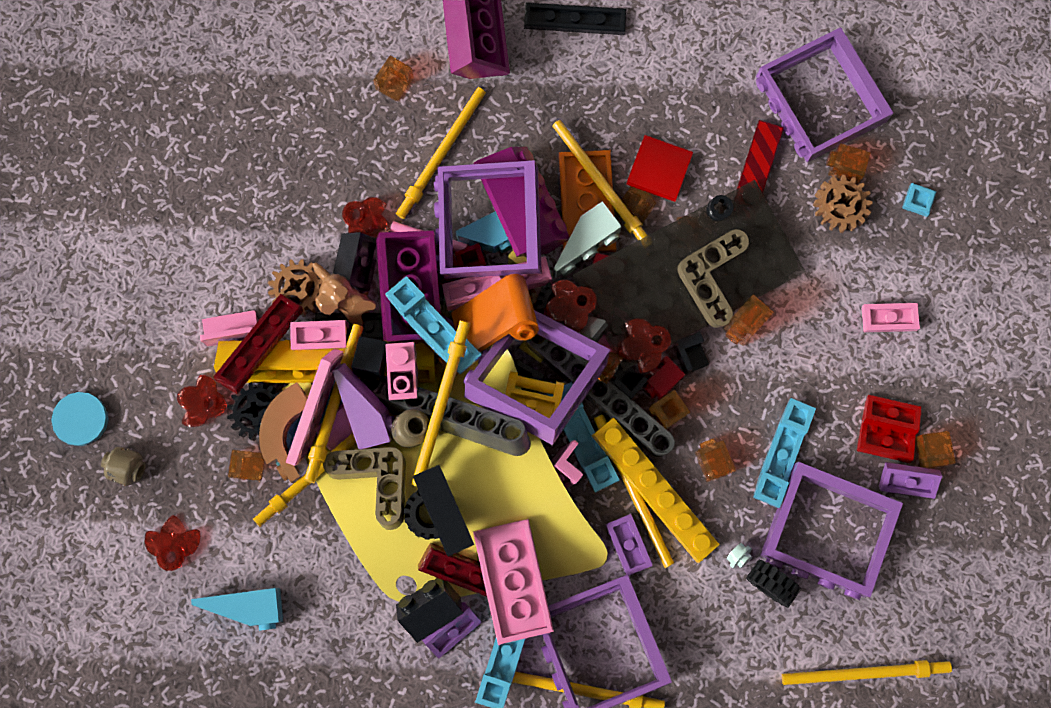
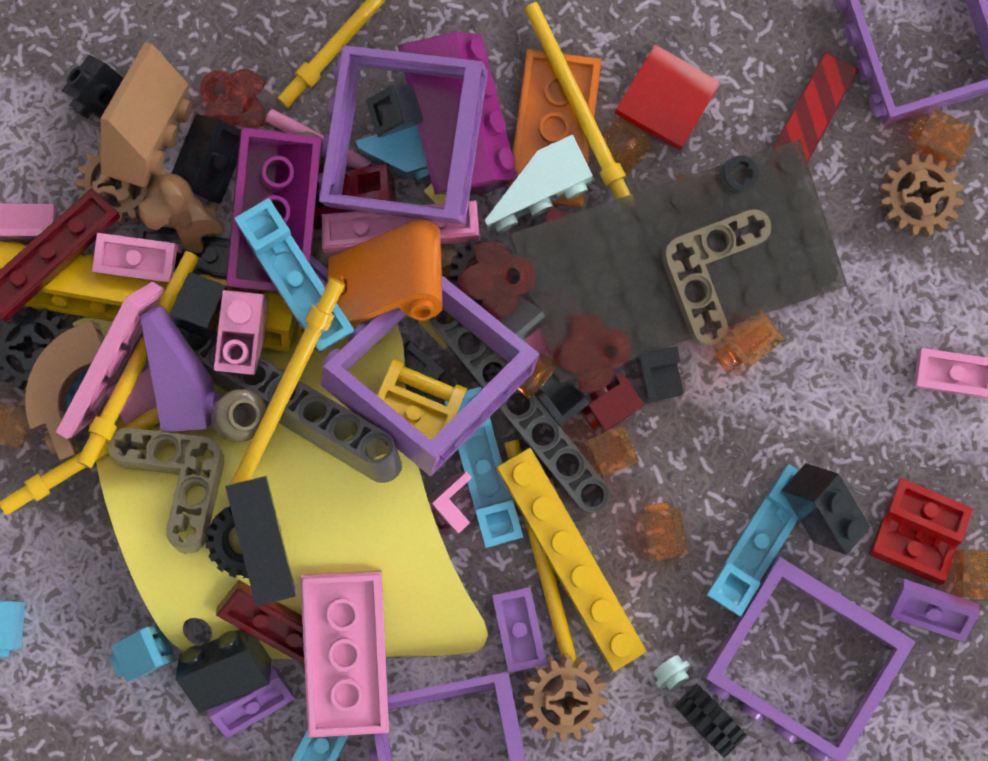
camera: 10 degrees right, 5 degrees up
(271, 227) = (91, 87): none -> black brick
(309, 240) = (143, 118): none -> medium nougat slope
(369, 609) = (141, 654): none -> medium azure slope
(480, 203) = (394, 109): none -> black slope
(677, 595) = (581, 703): none -> medium nougat gear
(823, 422) = (826, 508): none -> black brick

